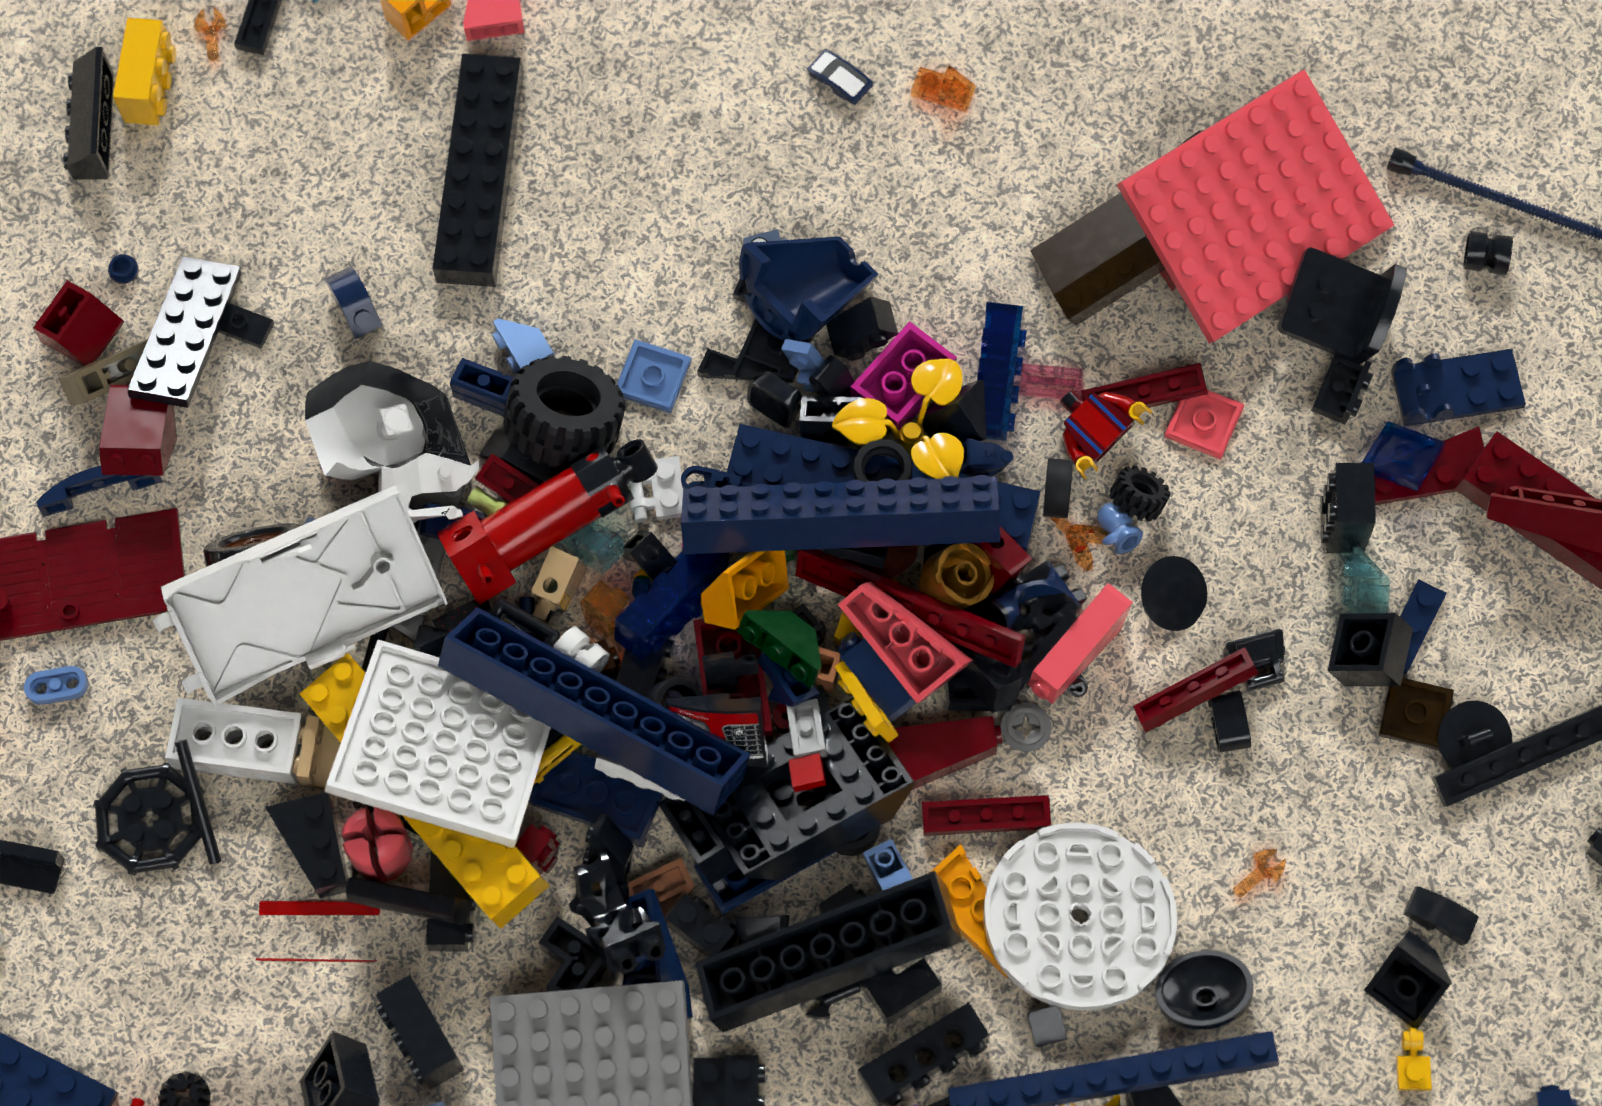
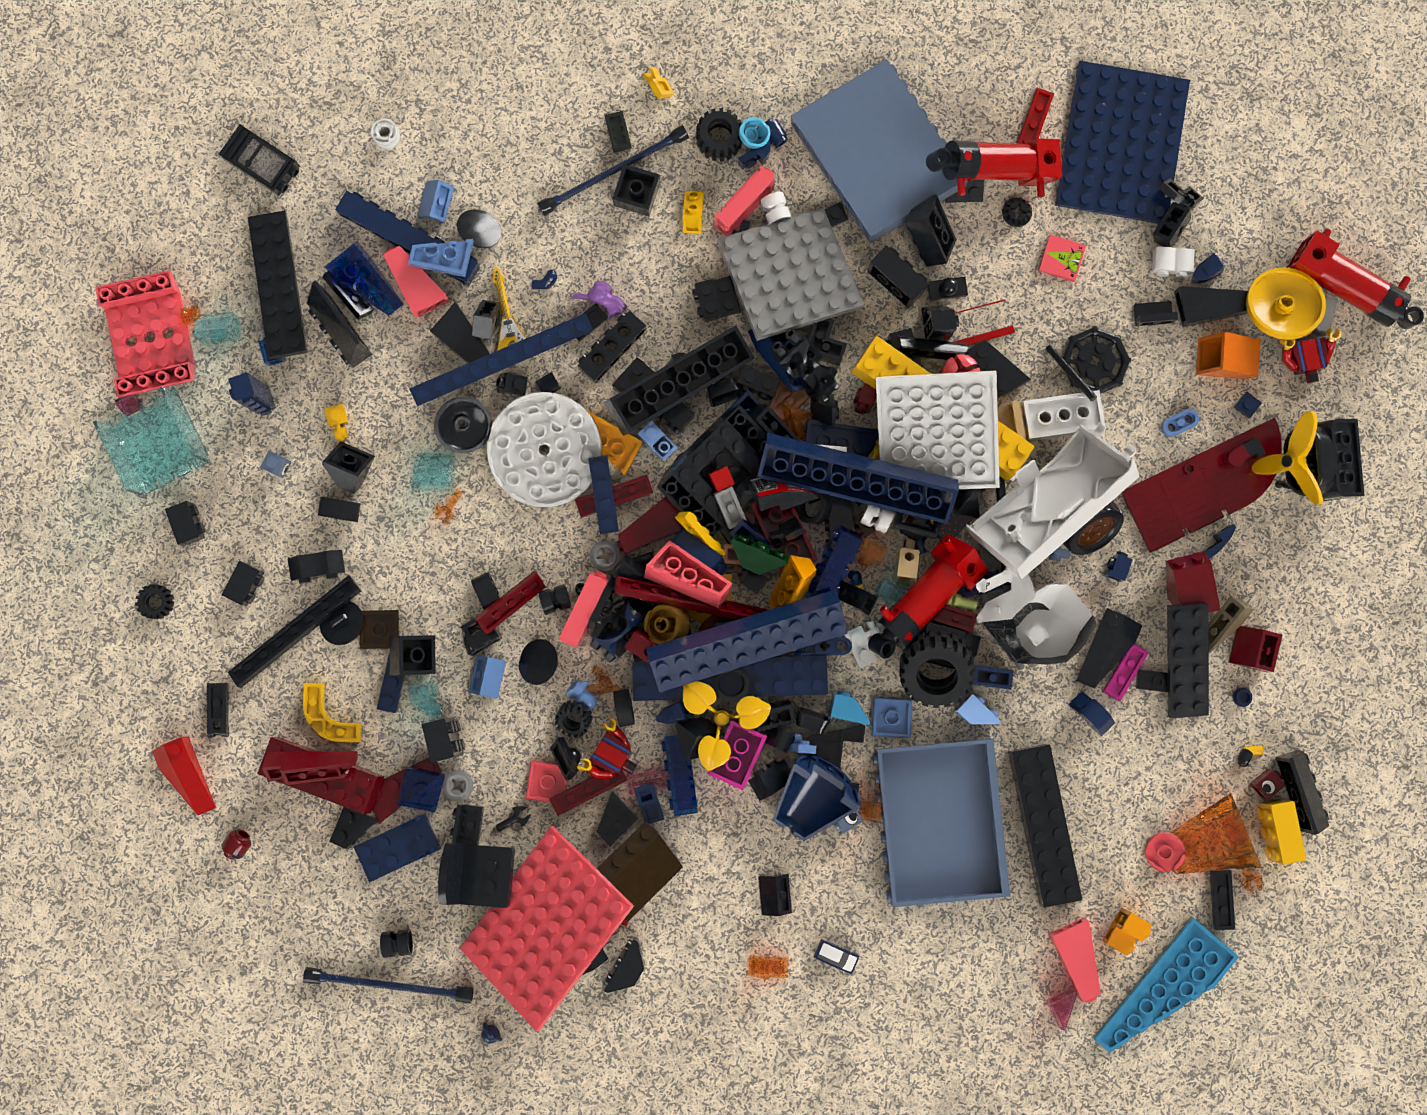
camera: 160 degrees right, 15 degrees up
(135, 142) = (1268, 784): none -> dark red brick
(140, 999) = (1062, 258): none -> coral tile
(147, 191) = (1247, 753): none -> black arm
(234, 496) = (1118, 567): none -> dark blue brick
(245, 86) = (1216, 840): none -> clear orange wedge
(279, 397) = (1112, 641): none -> black wedge
(280, 349) = (1125, 672): none -> dark pink tile
(318, 92) = (1165, 852): none -> coral tile
(343, 1001) = (947, 288): none -> black tile
(378, 938) = (939, 322): none -> black wedge
(628, 213) = (941, 822): none -> sand blue panel
(658, 852) = (794, 416): none -> clear orange slope
(720, 396) = (847, 708): none -> dark azure slope
(725, 250) = (871, 811): none -> clear orange slope
(904, 178) = (775, 895): none -> black panel
(1002, 816) = (603, 494): none -> dark blue plate
(1056, 347) = (649, 803): none -> dark blue slope
(1106, 1040) = (511, 384): none -> black bracket
(1113, 339) = (615, 819): none -> black wing
(1123, 678) = (554, 599): none -> black wheel
(1152, 134) = (627, 968): none -> black slope
(1166, 441) = (566, 758): none -> black tile
(1261, 595) = (487, 676): none -> medium blue panel
(1267, 382) = (513, 819): none -> black bar
(1270, 931) = (434, 472): none -> clear light blue slope
(1348, 438) = (458, 776): none -> light grey gear
(1375, 103) = (490, 1034): none -> dark blue piece
(1497, 834) = (316, 565): none -> black brick
(1527, 427) = (351, 827): none -> black wing
(1531, 1014) = (275, 464): none -> sand blue brick
(1537, 594) = (321, 722): none -> yellow plate

